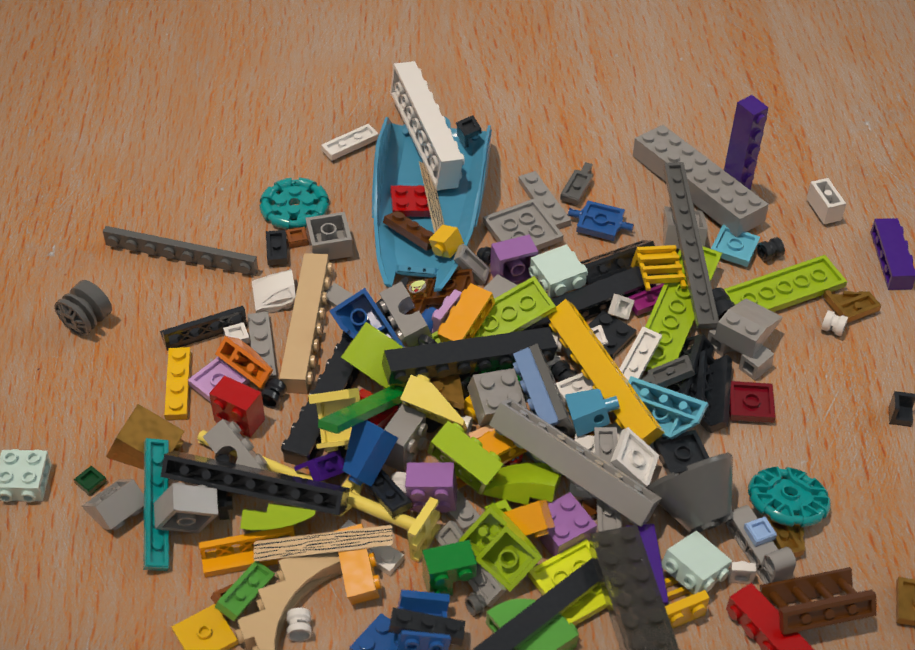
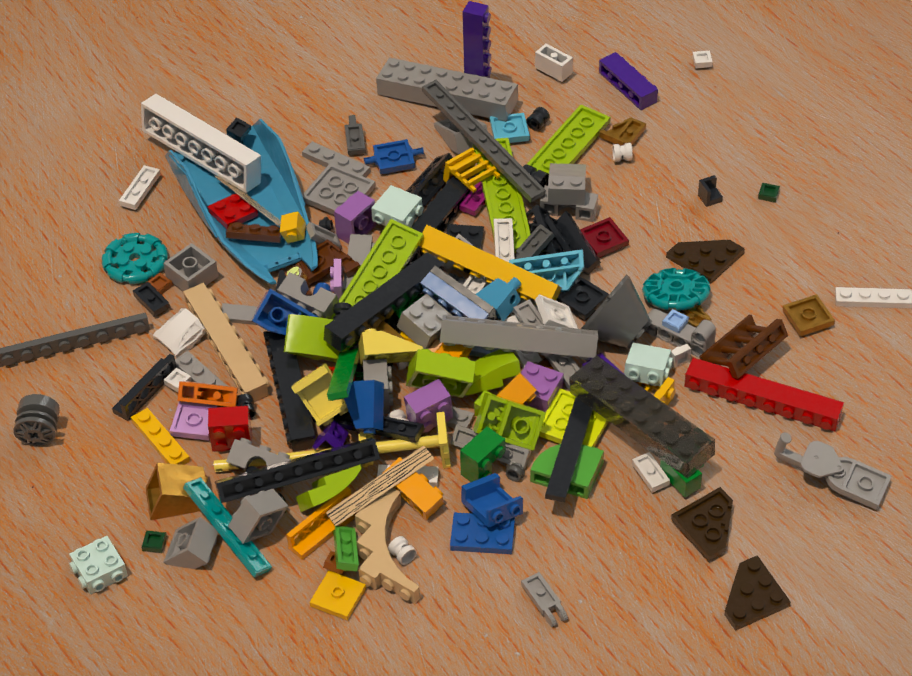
camera: 30 degrees left, 0 degrees up
(422, 622) = (479, 504): black plate -> none
(467, 315) = (360, 273): light orange brick -> none
(621, 306) = (461, 214): white plate -> none
(850, 479) = (706, 257): none -> dark brown plate

